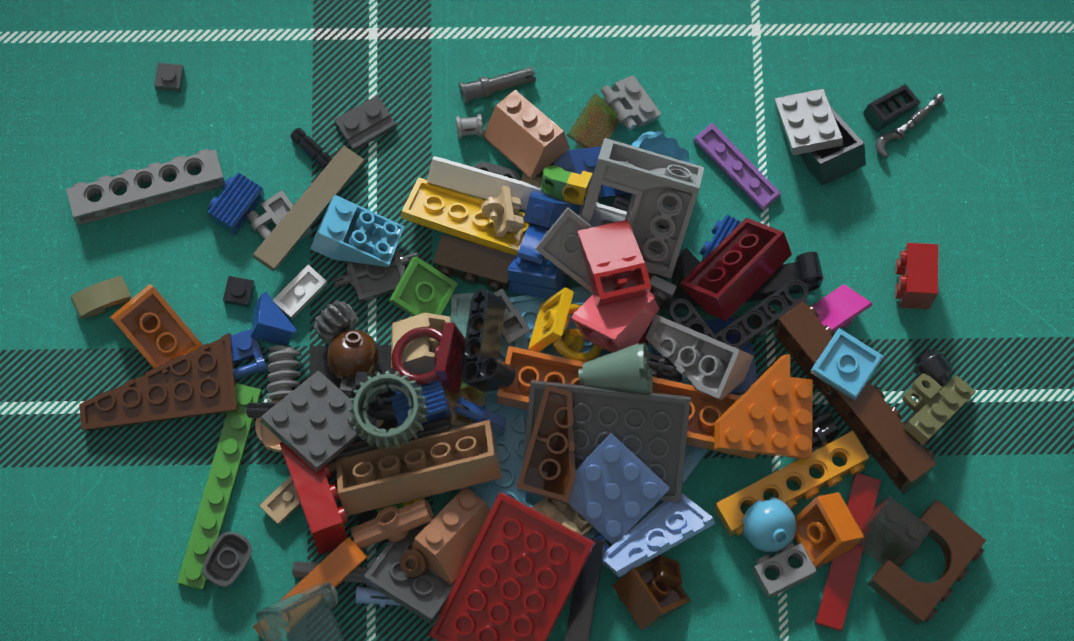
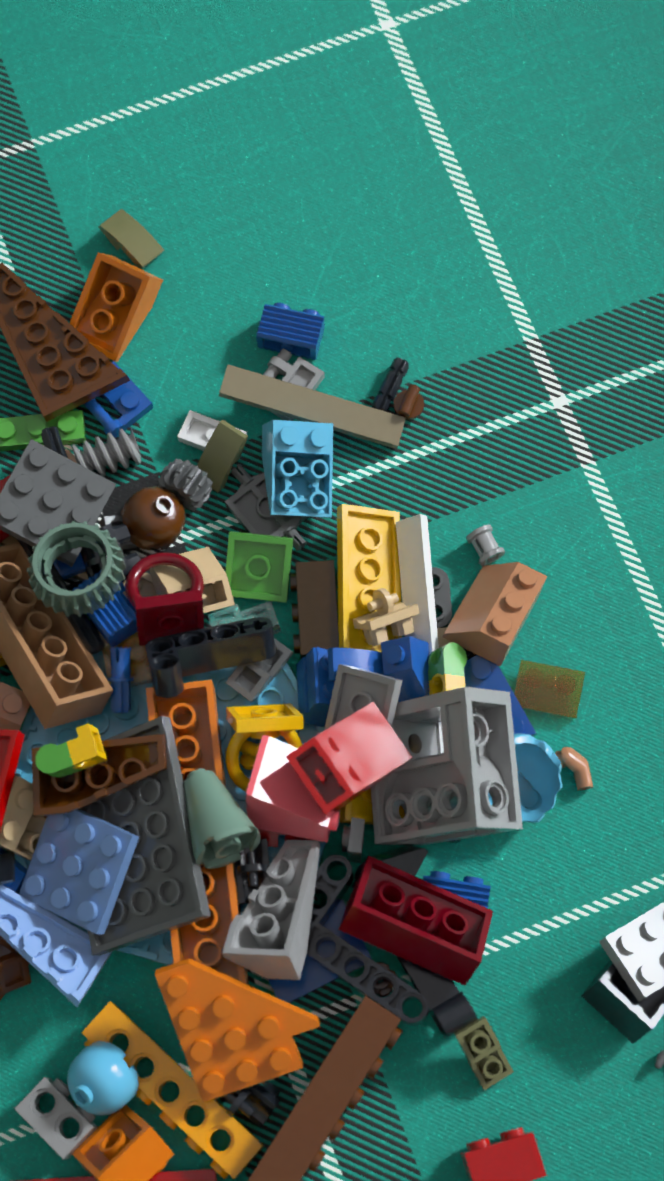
camera: 75 degrees right, 0 degrees up
(136, 197) = (312, 293): light grey brick -> none
(169, 77) = (414, 211): dark grey plate -> none
(238, 291) = (191, 374): black plate -> none
(271, 323) = (161, 417): blue slope -> none
(320, 285) = (221, 453): none -> olive slope
(331, 139) = (409, 403): none -> reddish brown plate
(365, 123) = (444, 432): dark grey plate -> none
(484, 86) = (543, 545): dark grey pin -> none
(537, 465) = (72, 755): none -> leg
(635, 100) = (598, 726): light grey plate -> none
(661, 125) = (578, 764): none -> nougat arm
(737, 167) = (565, 880): medium lavender tile -> none
(840, 263) = (483, 1052): none -> olive slope
(840, 307) = (421, 1071): dark pink piece -> none
(846, 364) = (333, 1105): medium azure tile -> none

